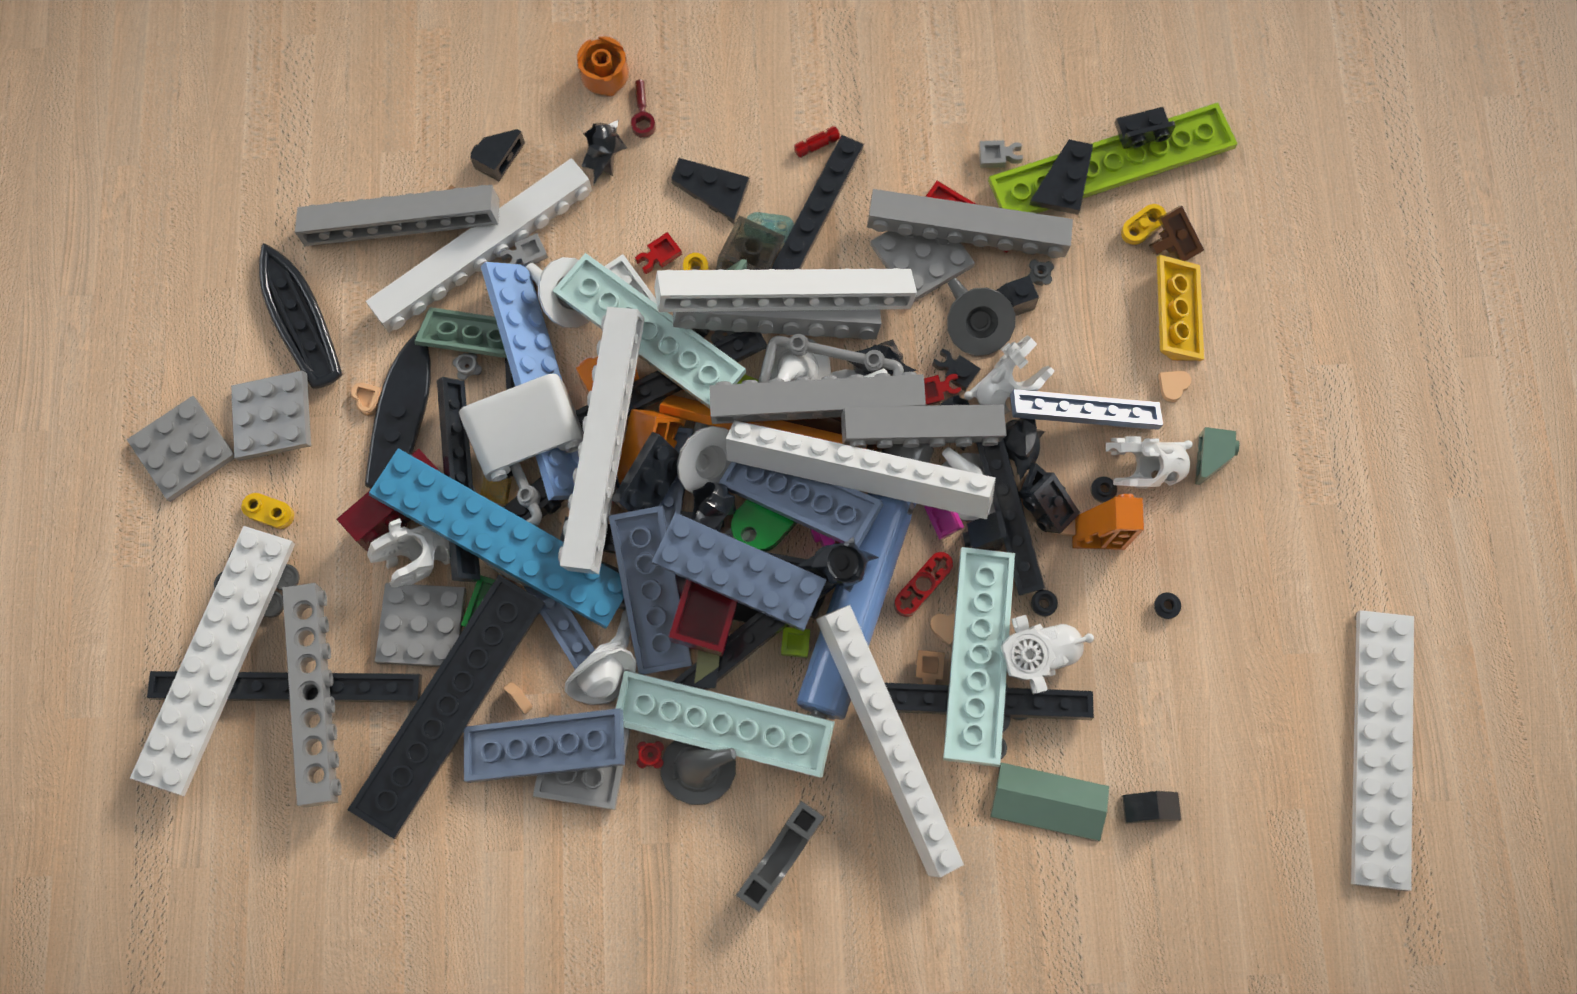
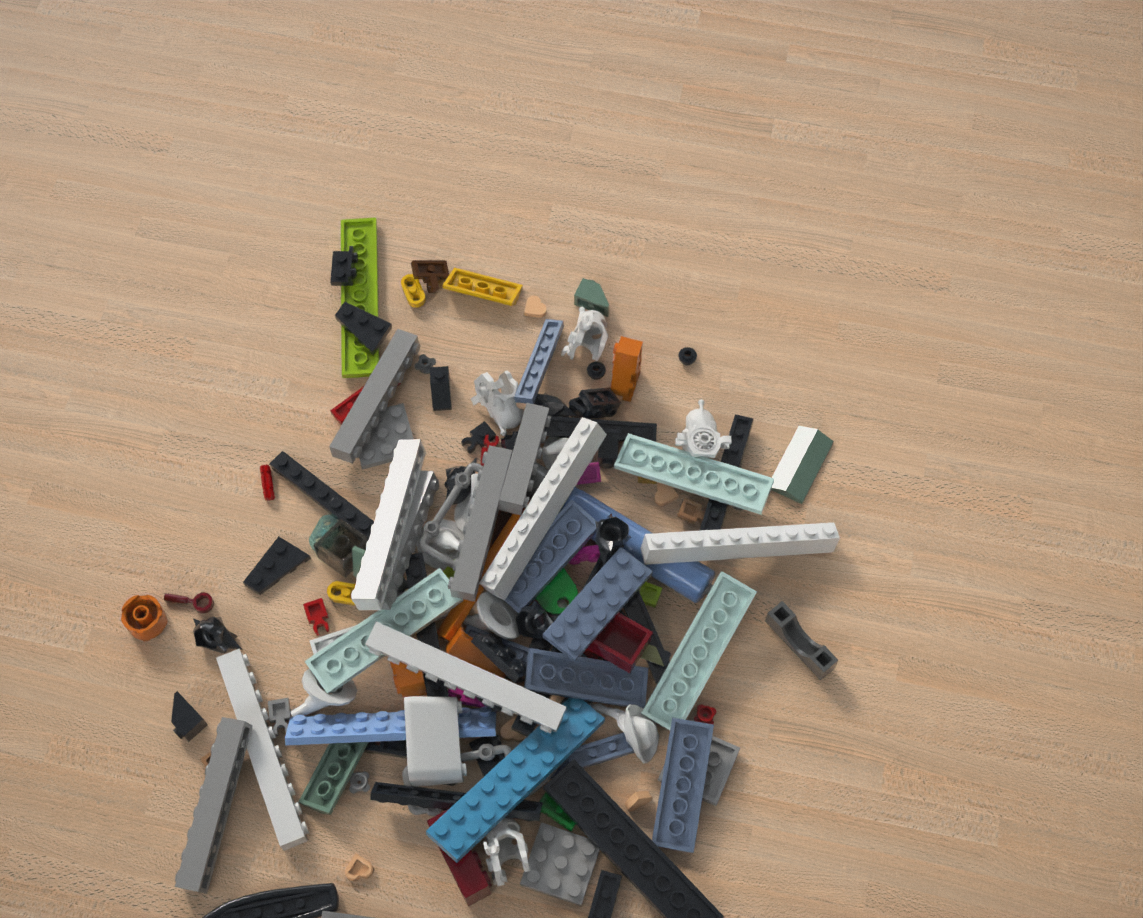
camera: 75 degrees left, 10 degrees down
(399, 408) = (383, 845): black piece -> none
(496, 491) = (470, 780): clear yellow plate -> none
(697, 773) = (726, 686): dark grey piece -> none
(930, 565) = (630, 492): red beam -> none
(979, 319) = (449, 409): dark grey piece -> none
(995, 154) = (325, 366): light grey plate -> none
(1049, 597) = (665, 424): black plate -> none
(1151, 807) = (819, 405): black slope -> none
(1383, 751) = (812, 264): white plate -> none

